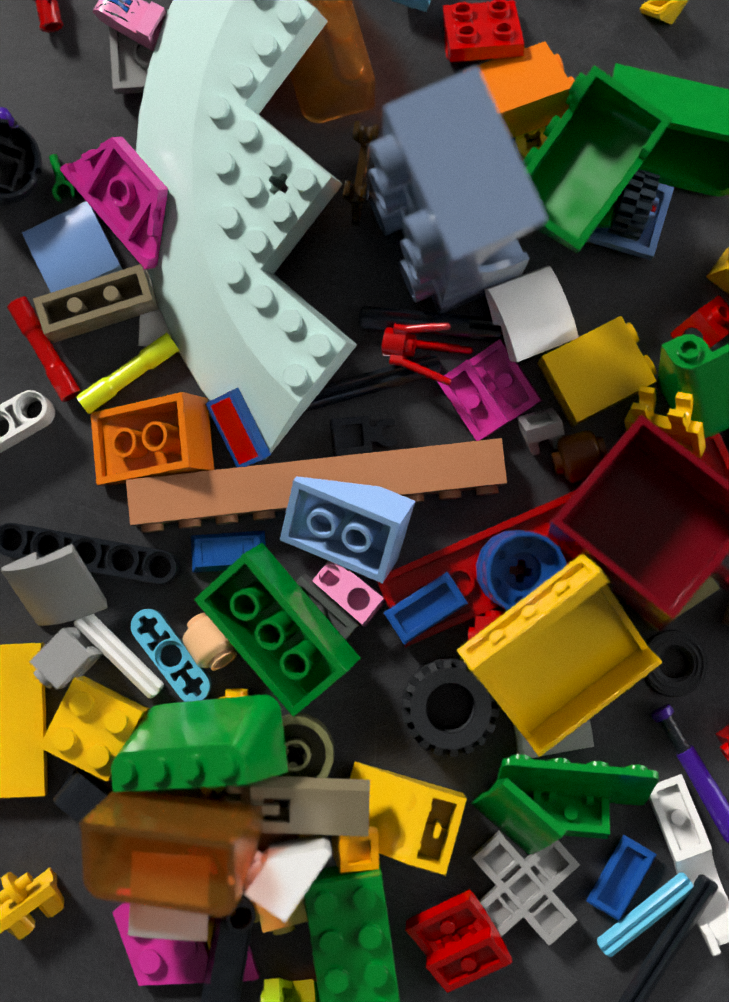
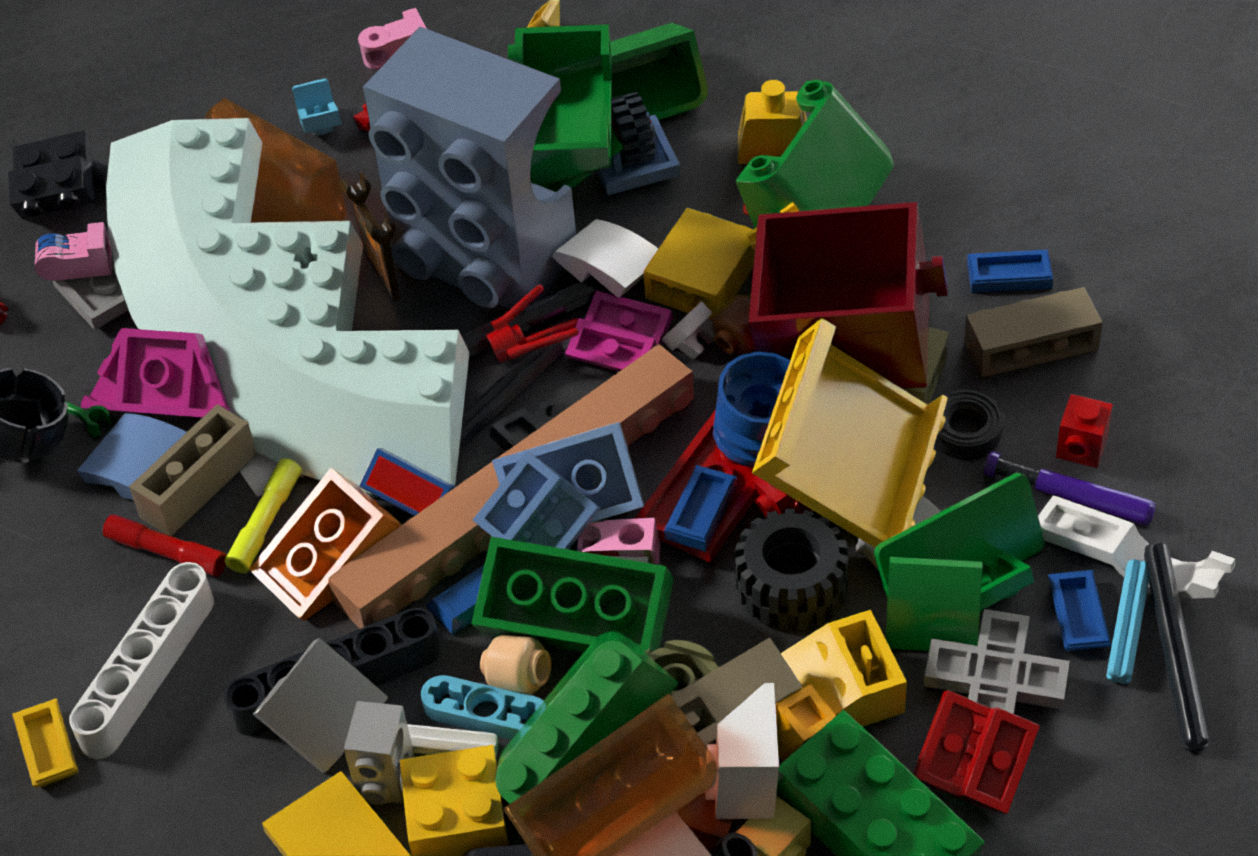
camera: 30 degrees left, 35 degrees down
(302, 537) = (536, 507): none -> medium blue slope

